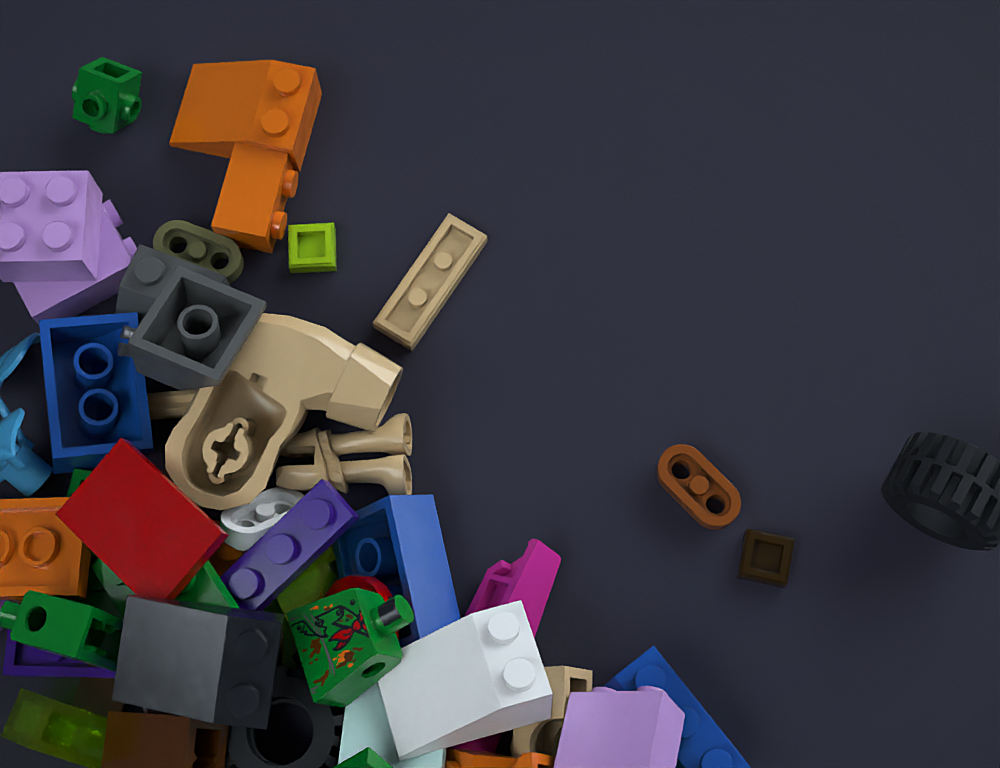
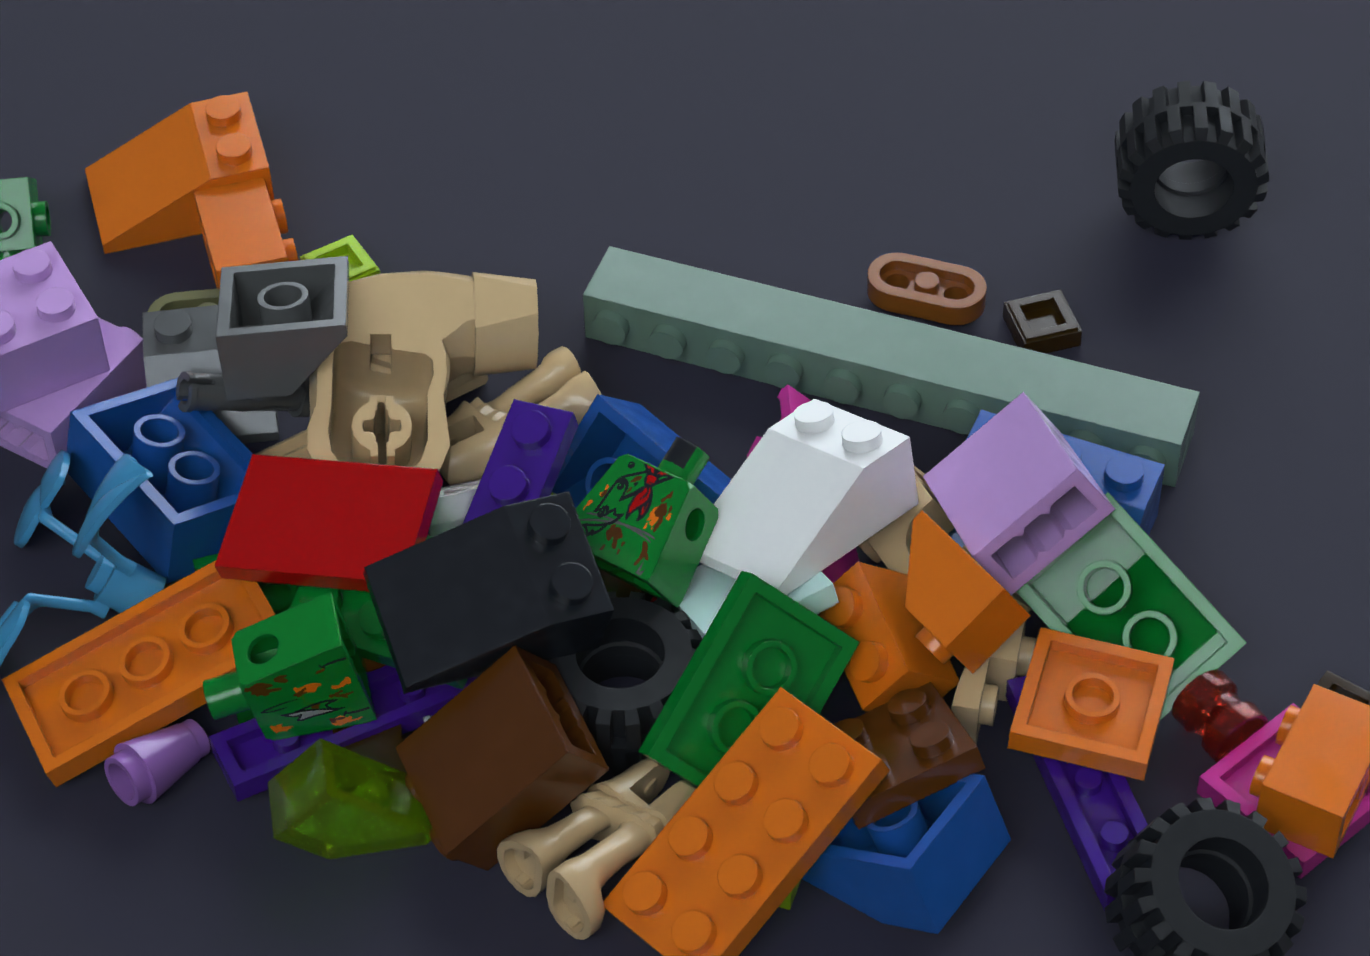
camera: 30 degrees left, 25 degrees down
(430, 282) = (502, 226): tan tile -> none
(632, 551) = (875, 357): none -> sand green brick

